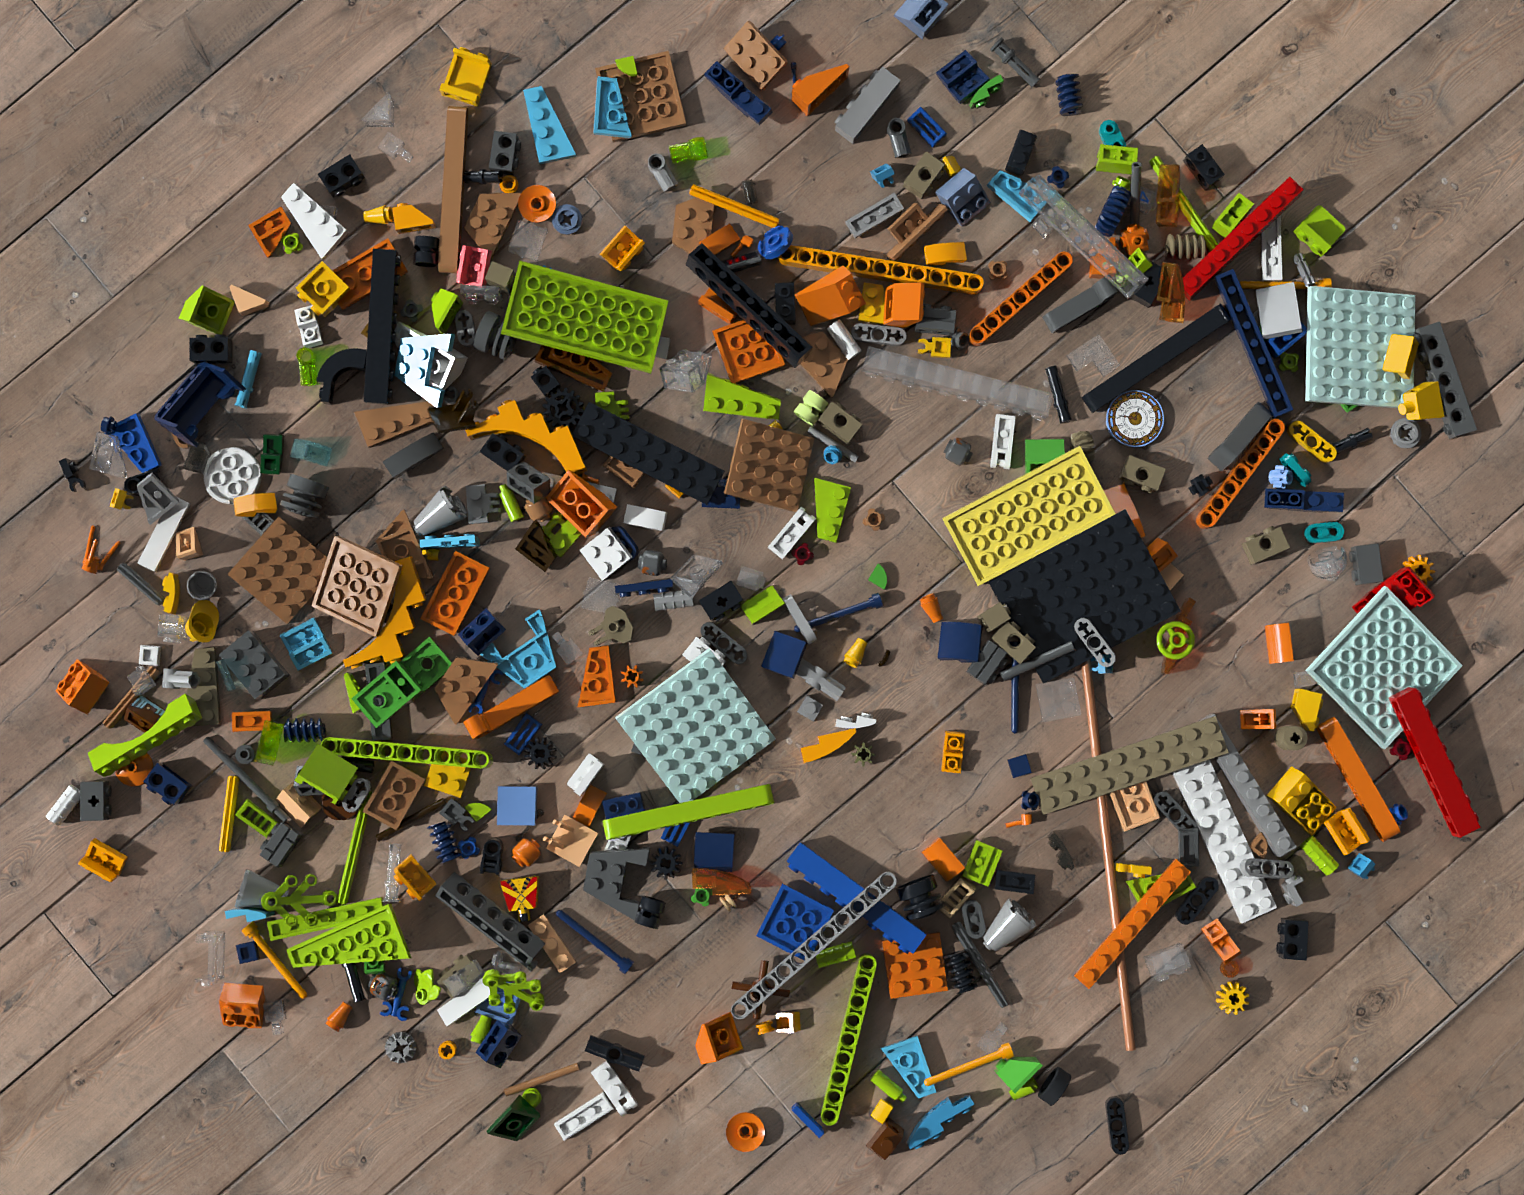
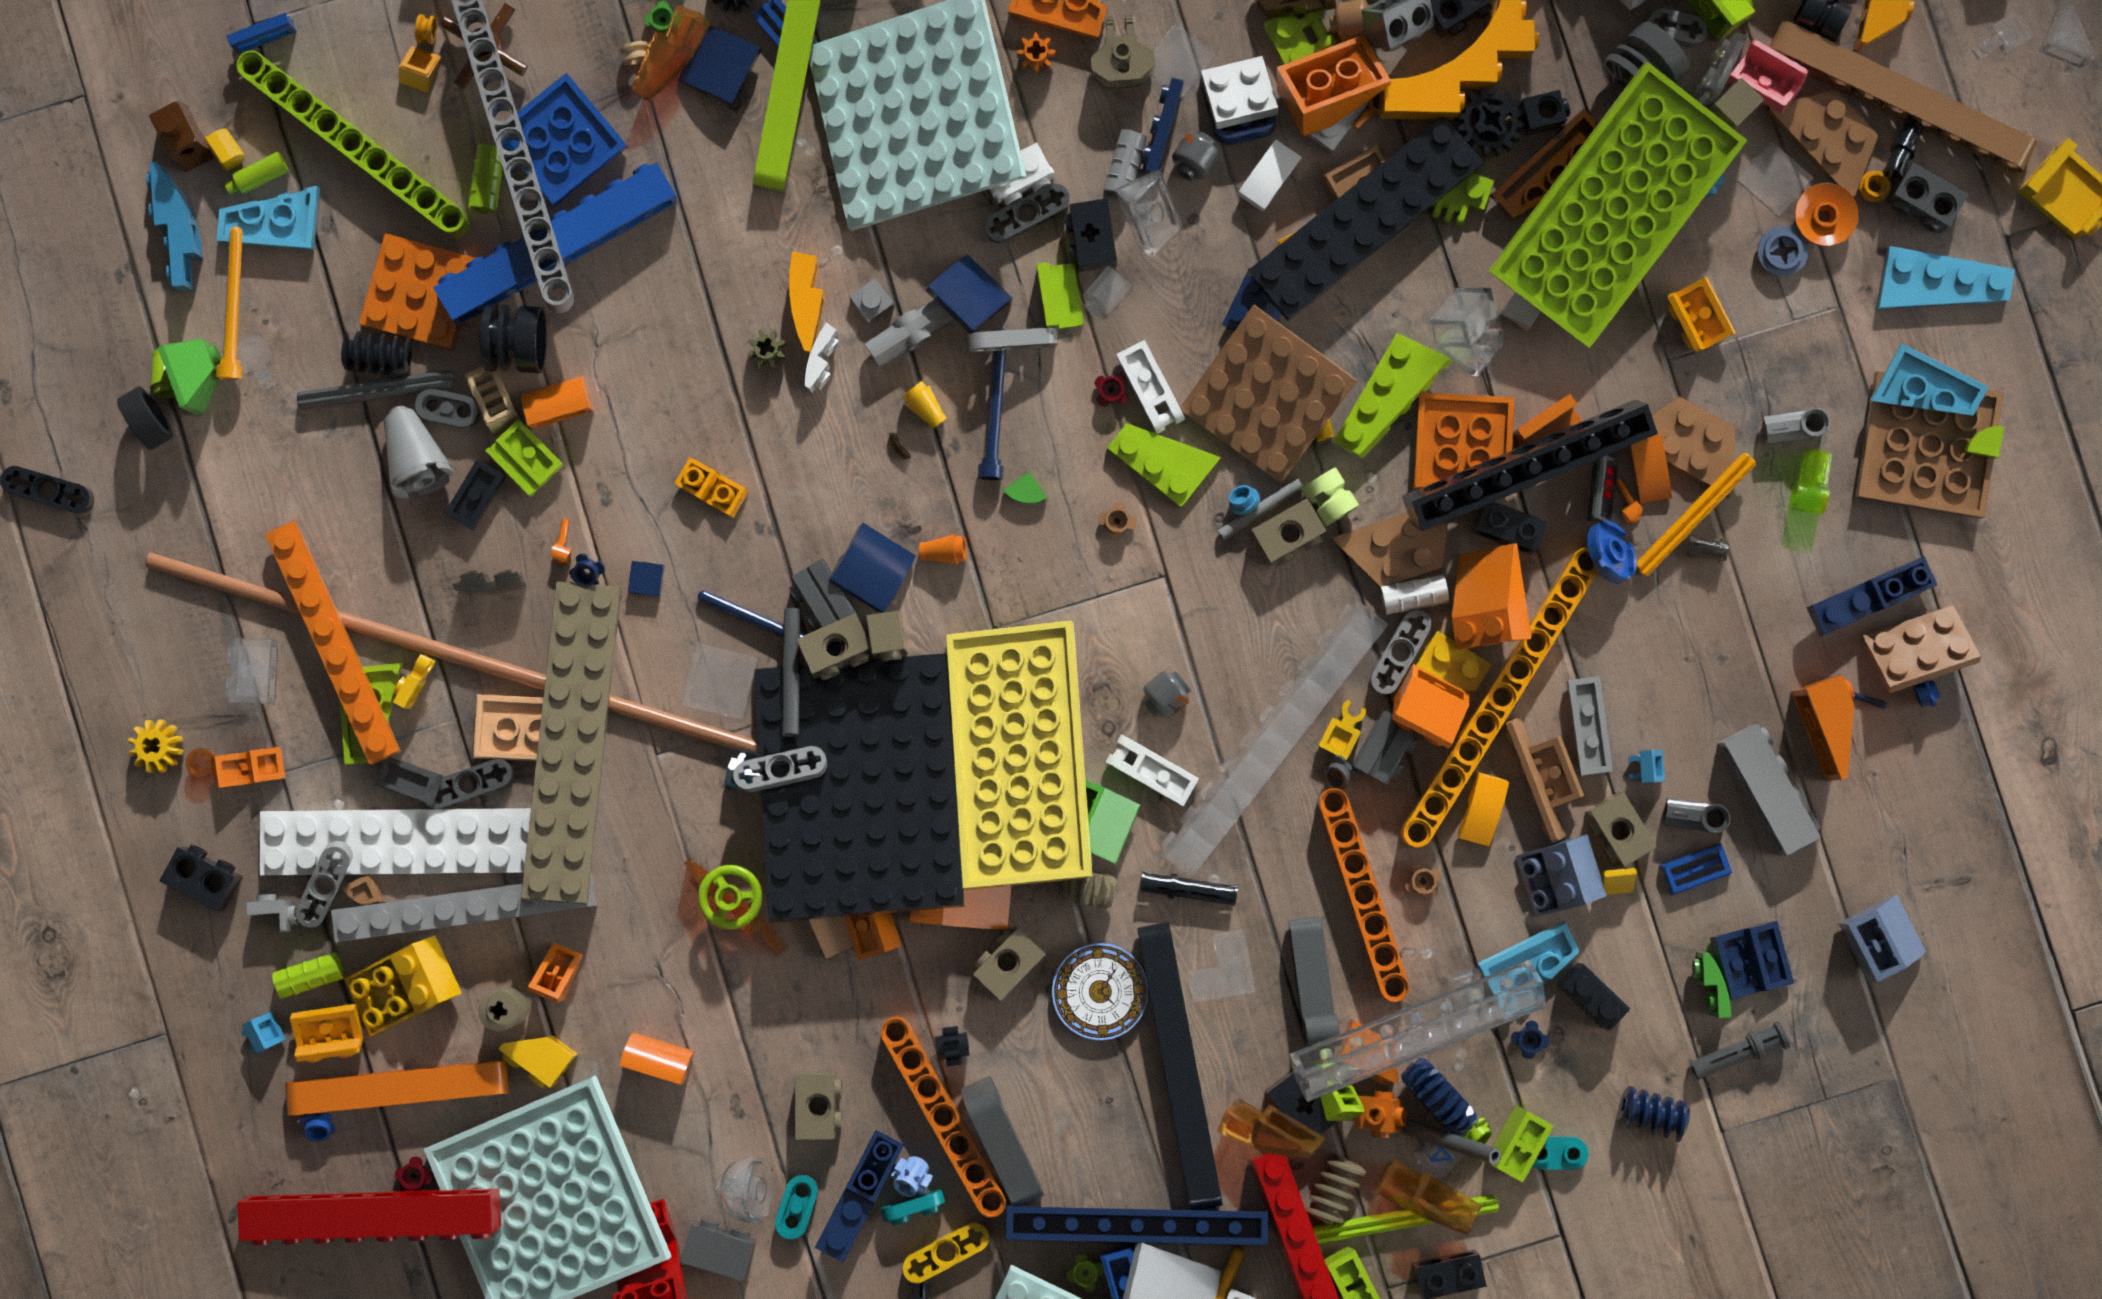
camera: 115 degrees right, 0 degrees up
(1192, 915) = (328, 783): black beam -> none

